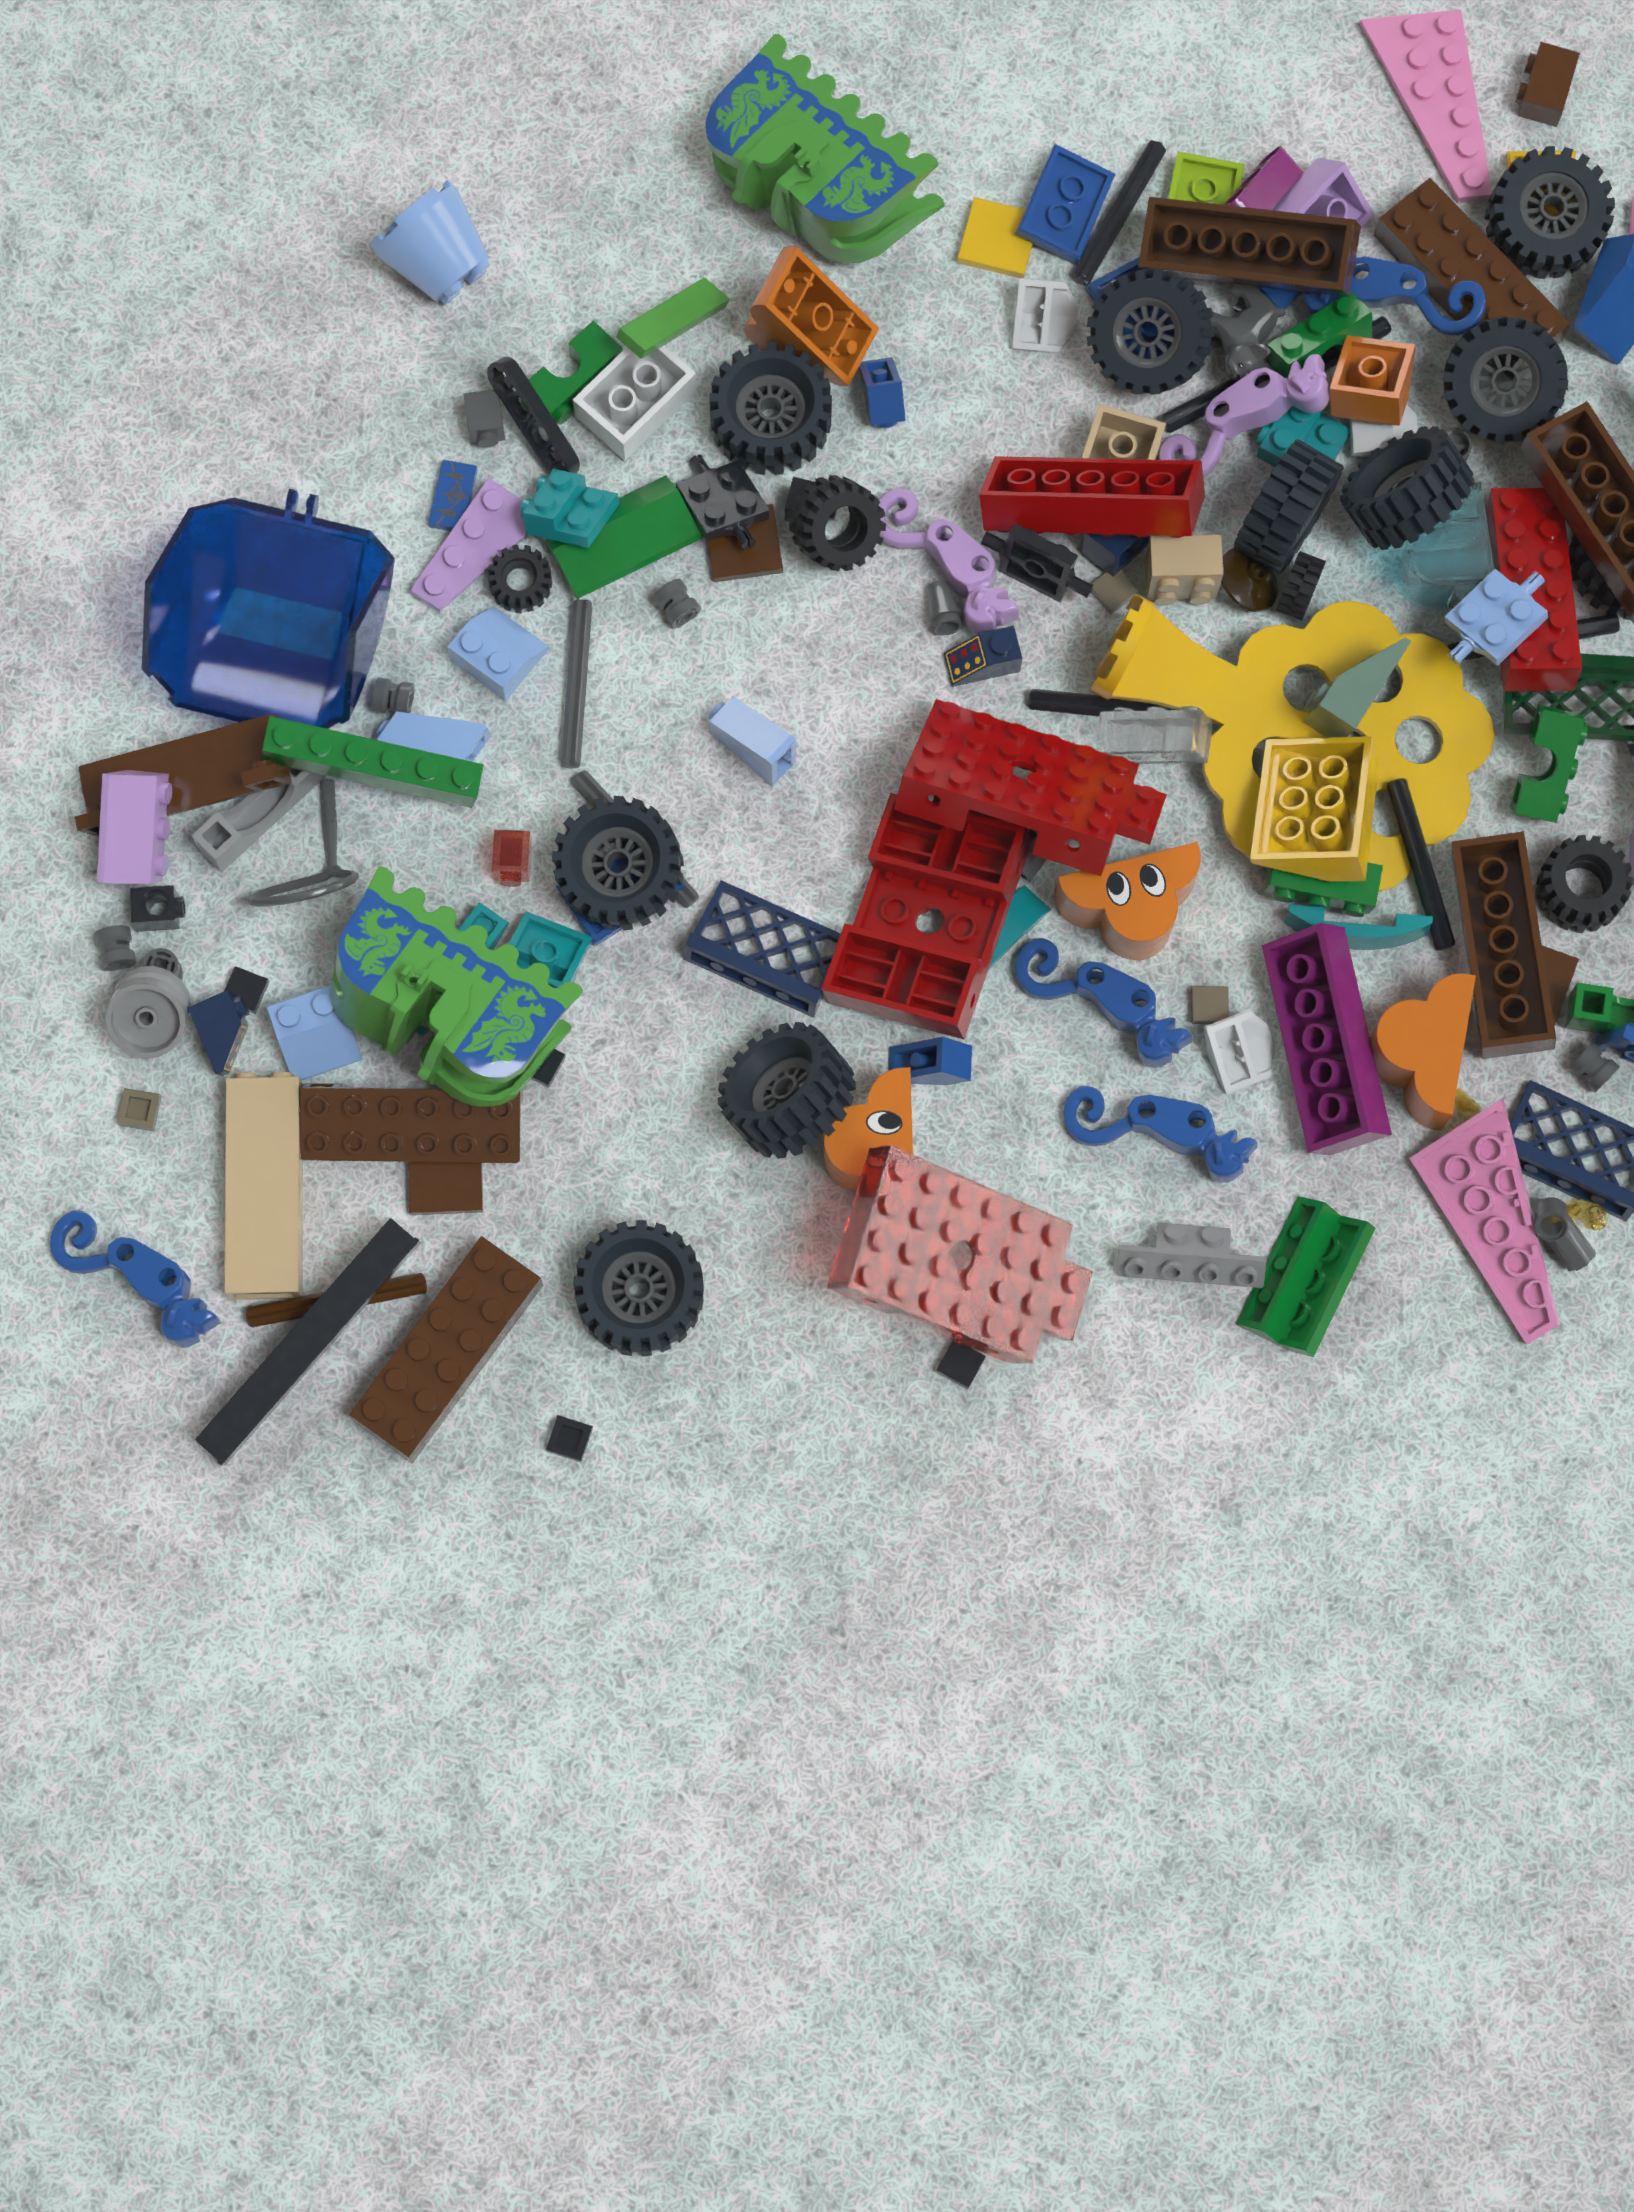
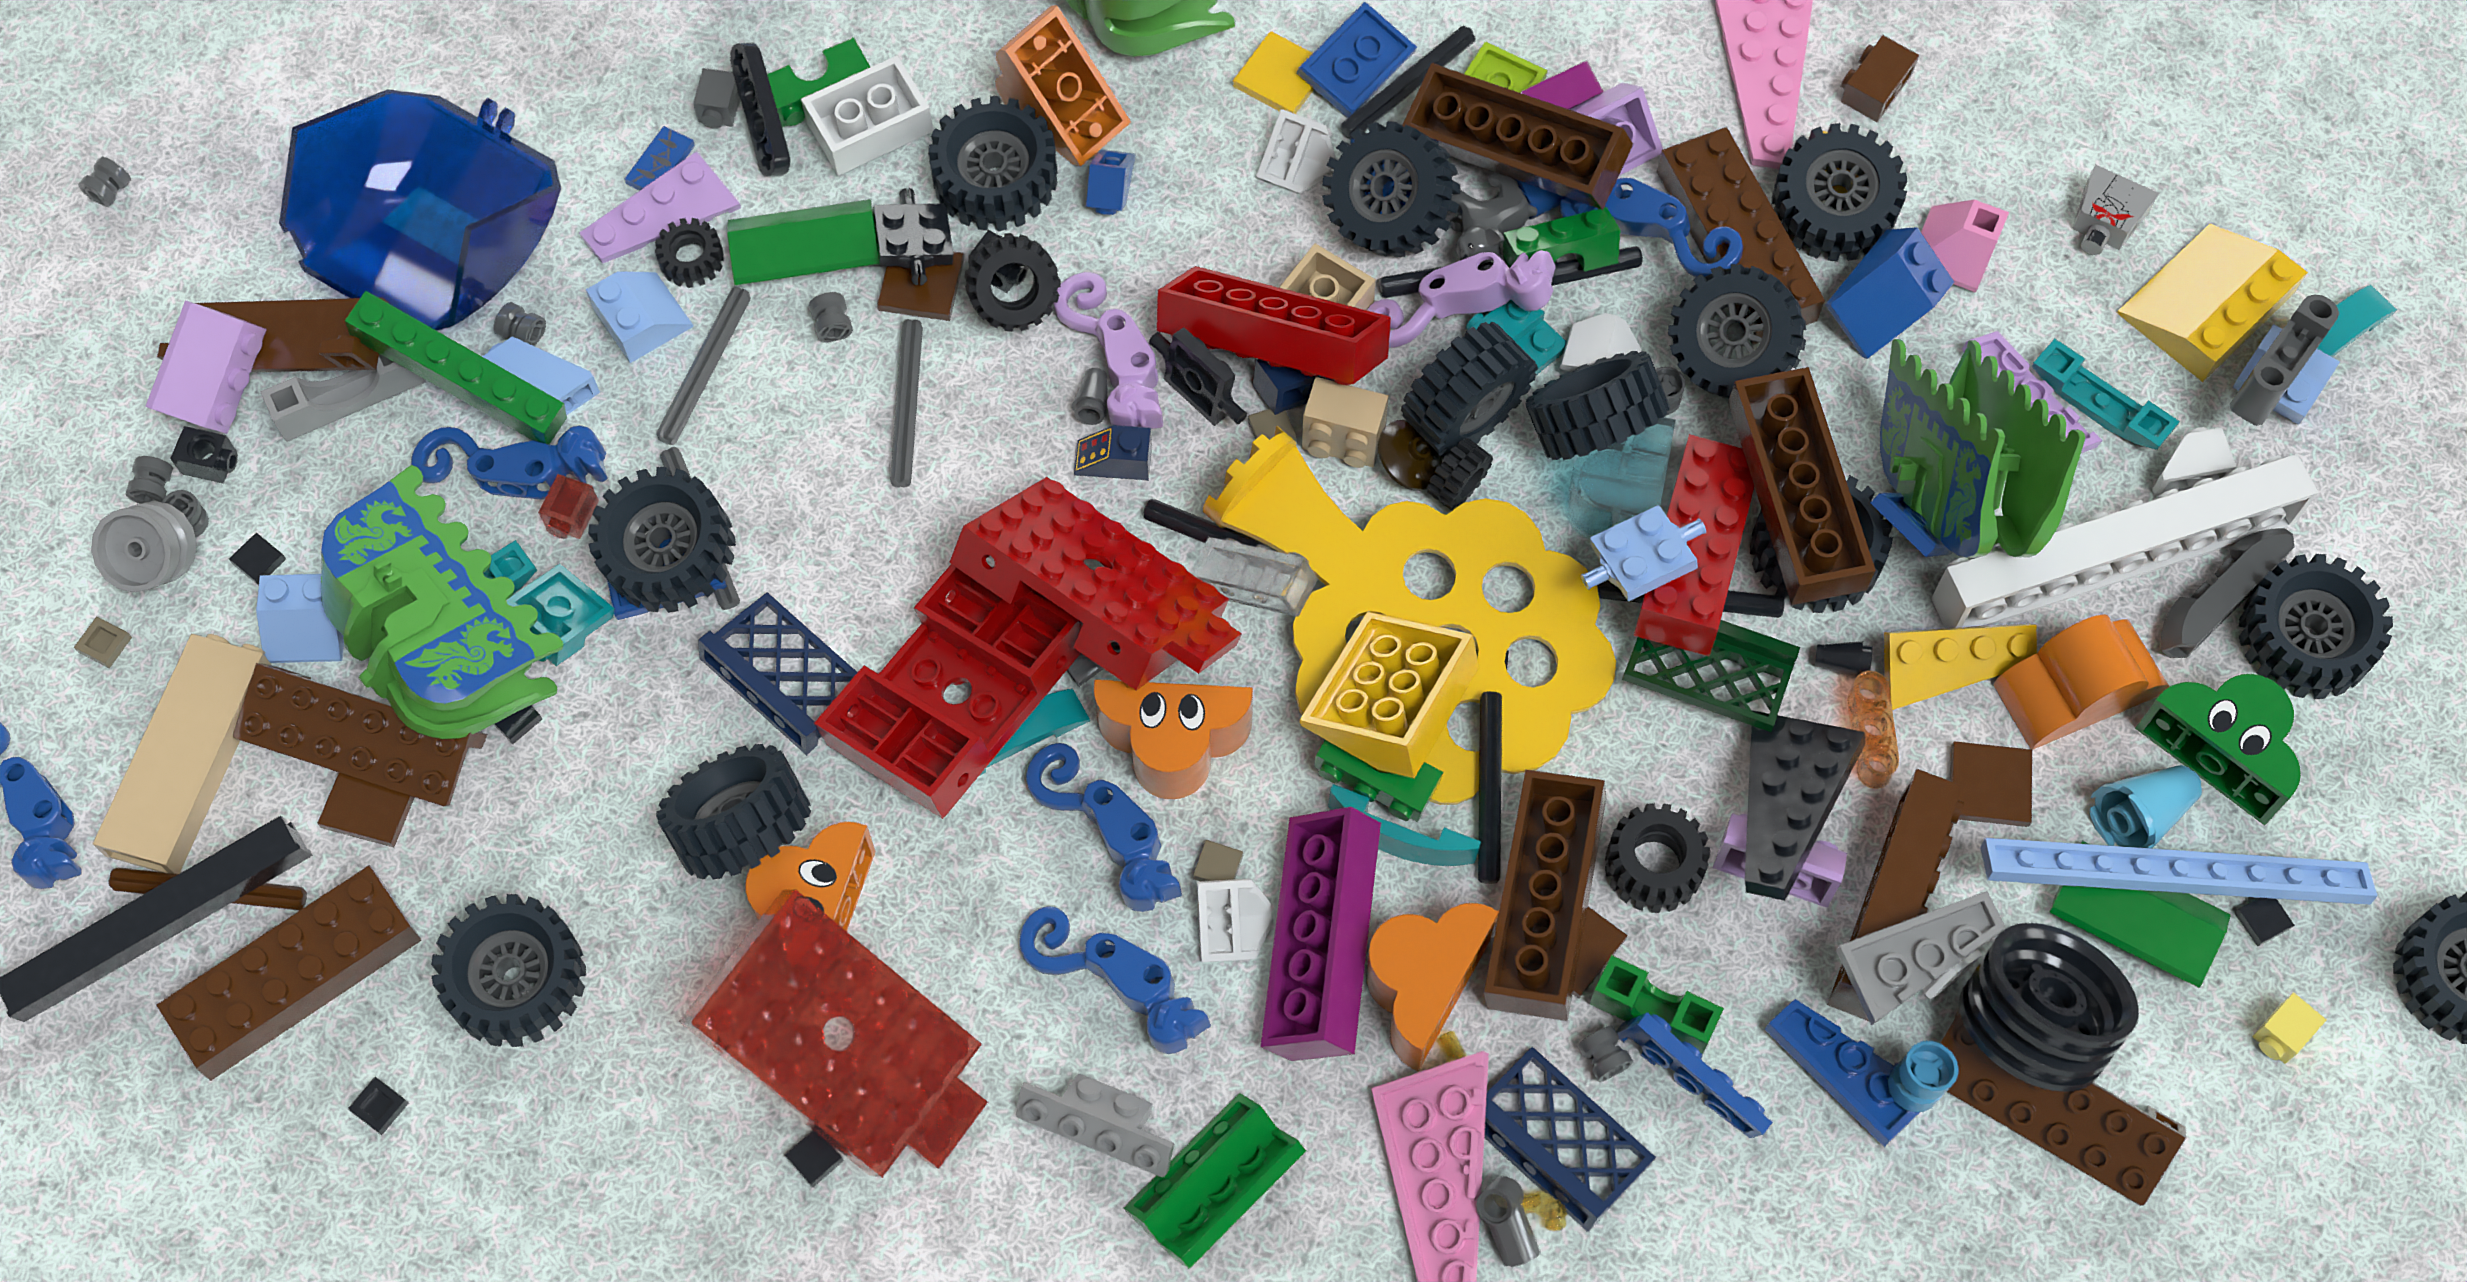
camera: 20 degrees right, 10 degrees down
(221, 1028) = (211, 586): dark blue slope -> none
(262, 897) = (405, 438): dark grey piece -> none
(448, 832) = (516, 466): none -> blue animal
(567, 509) = (757, 198): teal plate -> none
(672, 318) = (929, 54): bright green tile -> none
(753, 739) = (852, 466): light blue slope -> none
(775, 662) = (906, 403): none -> dark grey axle
(934, 1061) = (907, 834): blue slope -> none
(1340, 706) = (1471, 584): sand green slope -> none
(1372, 380) = (1599, 296): orange slope -> none
(1545, 794) = (1643, 754): green arch -> none

